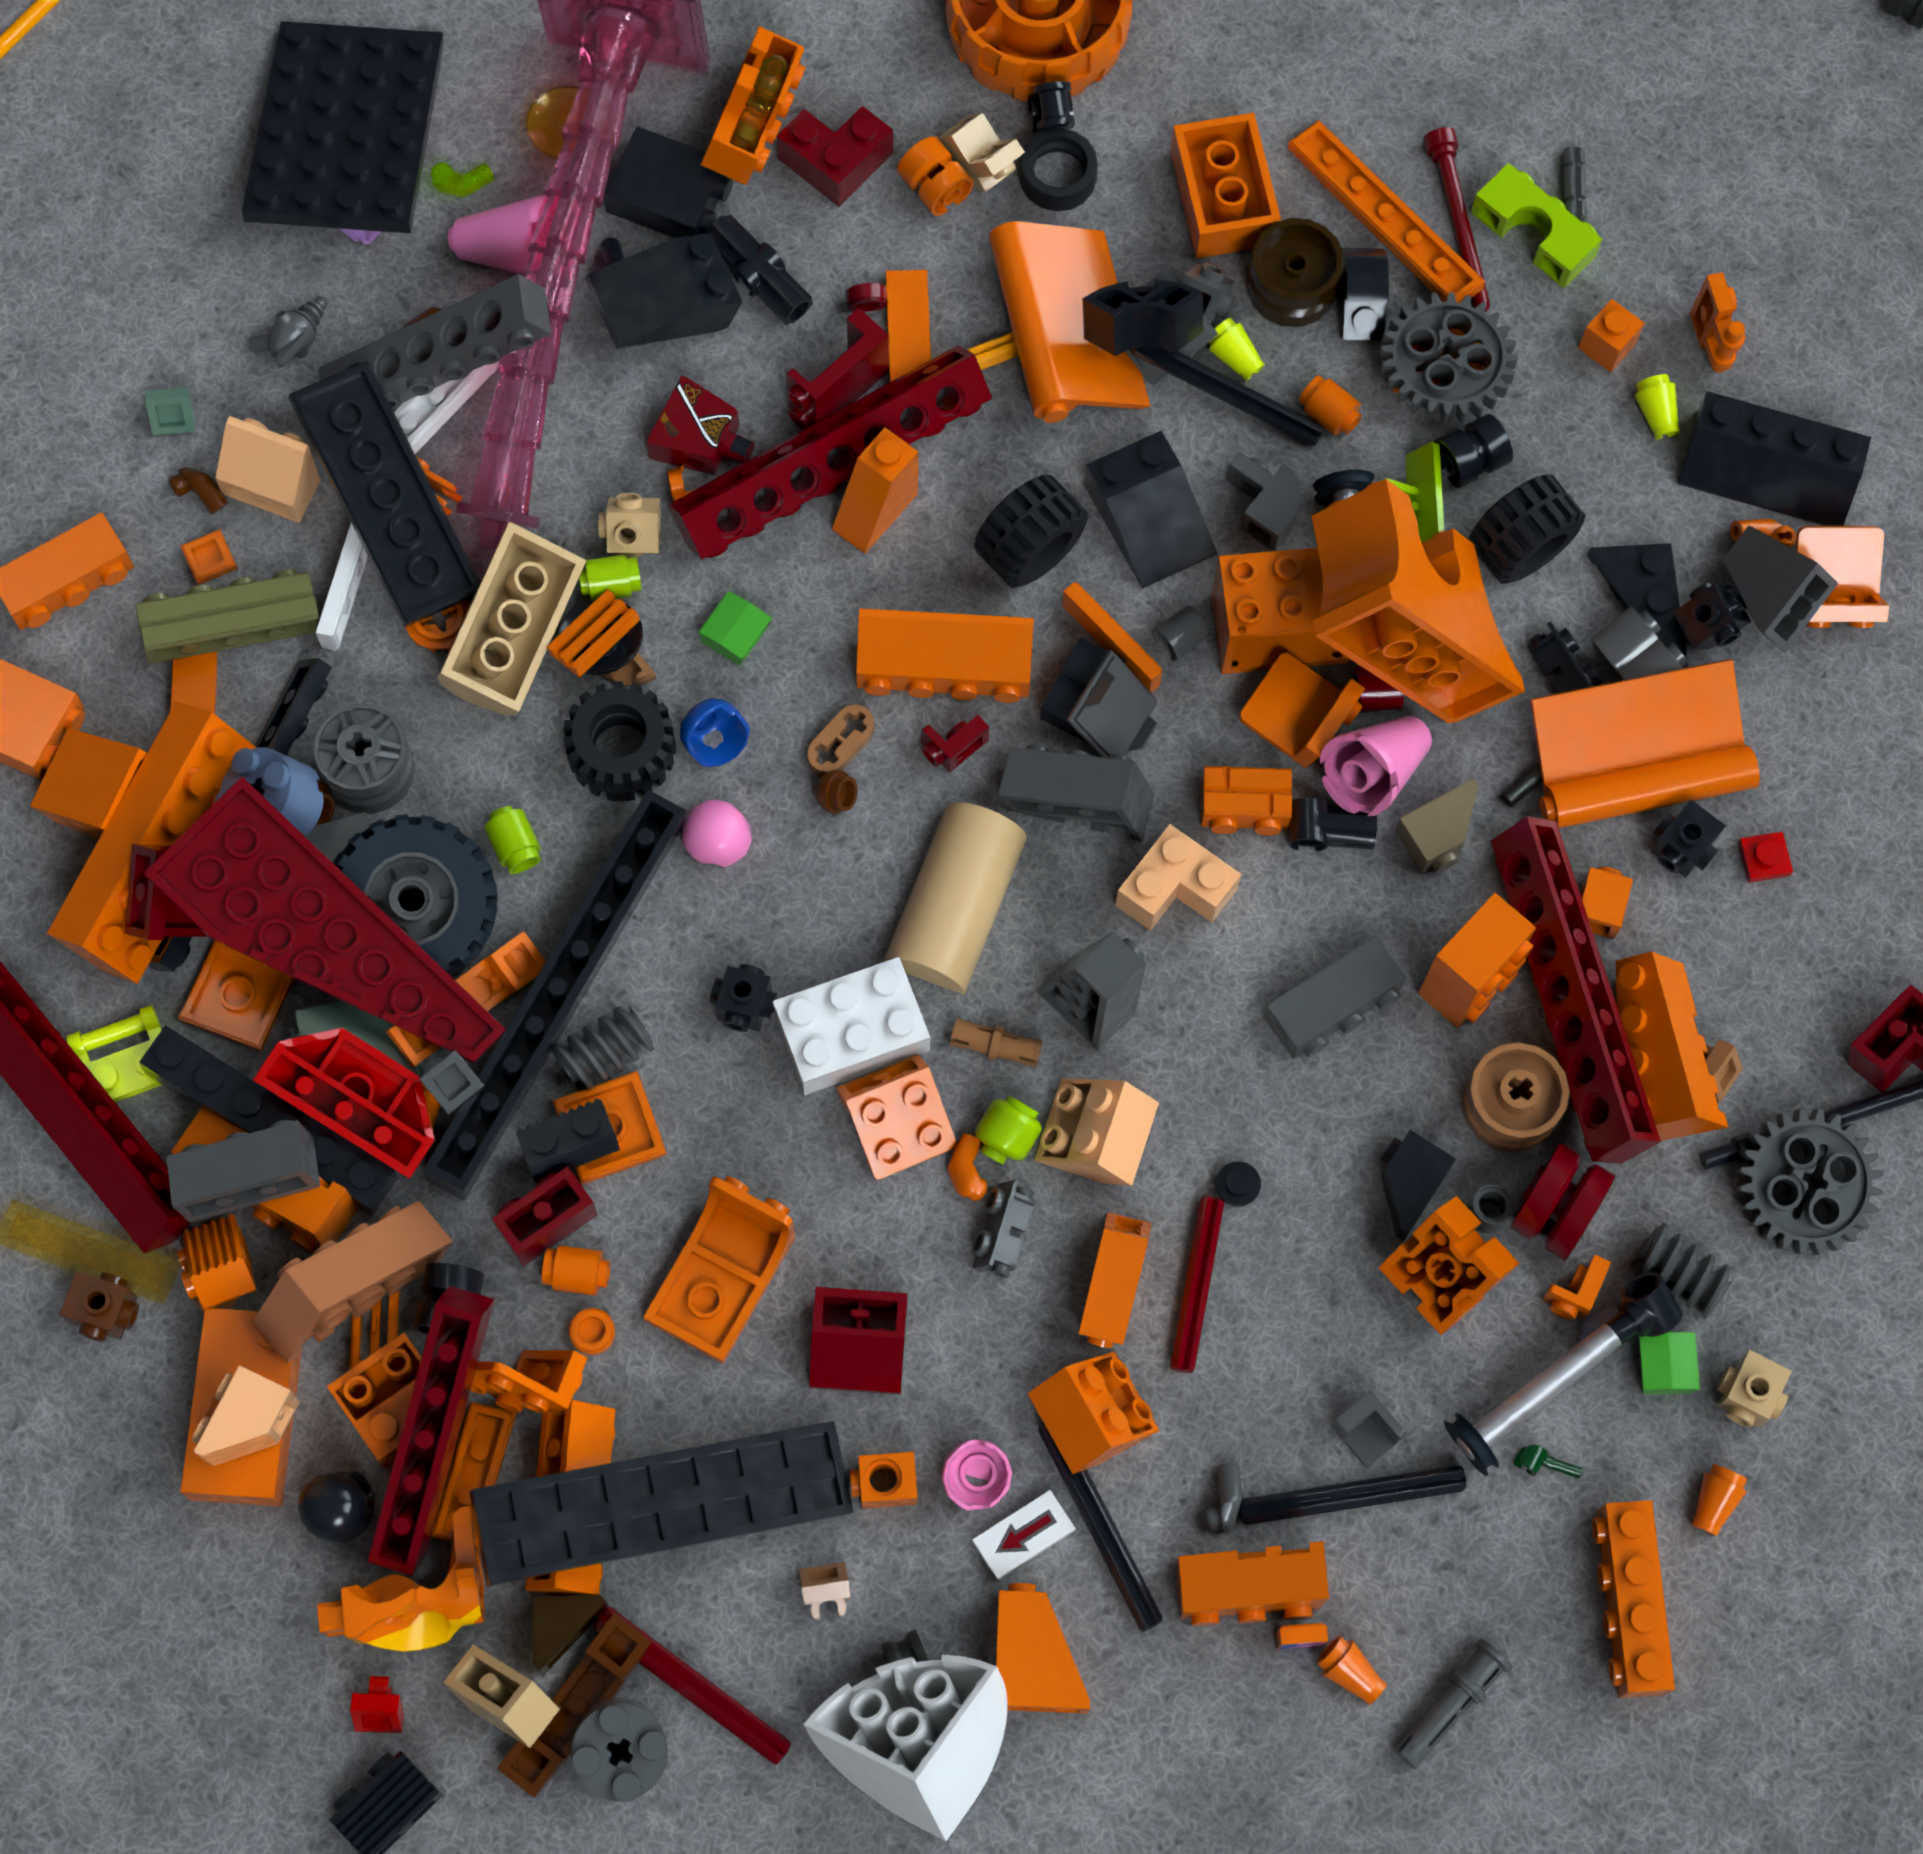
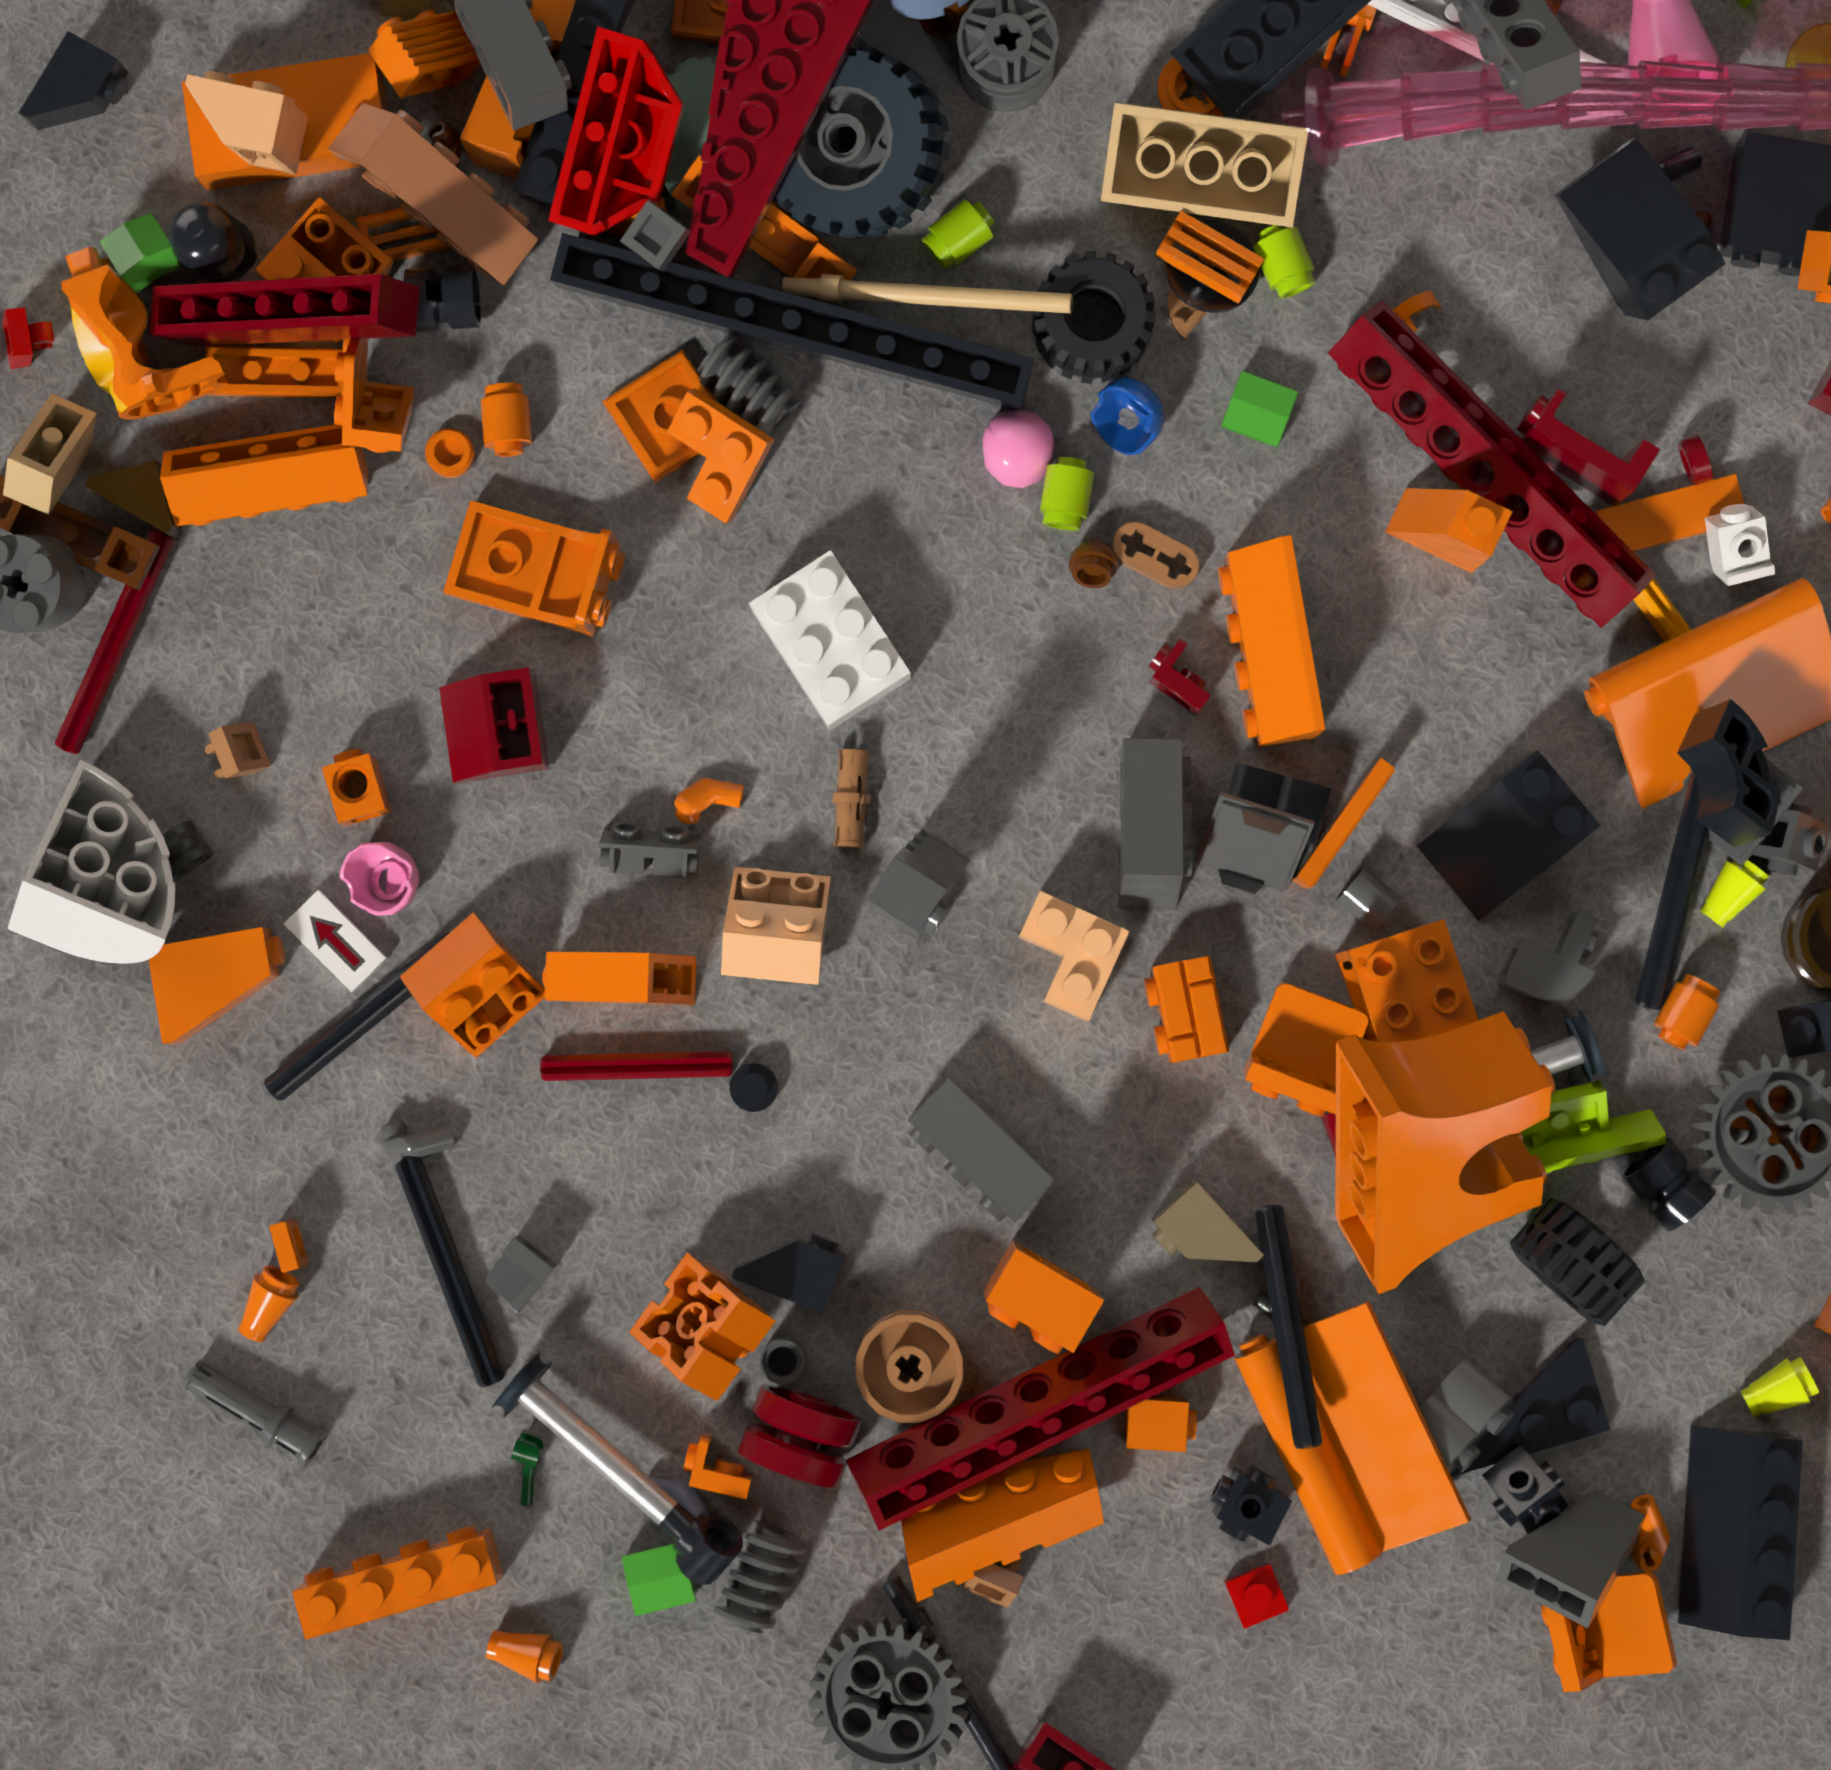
camera: 85 degrees right, 15 degrees up
(147, 1602) = (74, 85): none -> black slope
(325, 1570) = (140, 252): none -> bright green piece
(536, 951) = (834, 289): none -> tan bar
(544, 1215) = (550, 372): dark red brick -> none
(568, 1140) = (633, 374): black brick -> none
(631, 525) = (1350, 267): tan brick -> none
(656, 1071) = (731, 450): none -> orange plate
(659, 1502) = (270, 563): black plate -> none
(697, 431) = (1483, 311): dark red torso -> none
(745, 1012) = (837, 536): black brick -> none
(760, 270) = (1701, 330): black piece -> none
(769, 800) = (1066, 494): none -> lime brick
(898, 1116) = (747, 710): bracket -> none
(947, 279) = (1726, 532): none -> white brick
(957, 895) = (1003, 720): tan brick -> none
(1008, 1130) = (755, 832): lime head -> none
(1030, 531) = (1441, 705): black tyre -> none
(1252, 1584) = (328, 1183): orange wedge -> none
(1321, 825) = (1177, 1100): black piece -> none
(1374, 763) = (1256, 1144): bright pink cone -> none
(1540, 772) = (1289, 1327): none -> black axle
(1558, 651) = (1446, 1327): black hinge -> none
(1753, 1390) = (658, 1662): tan brick -> none

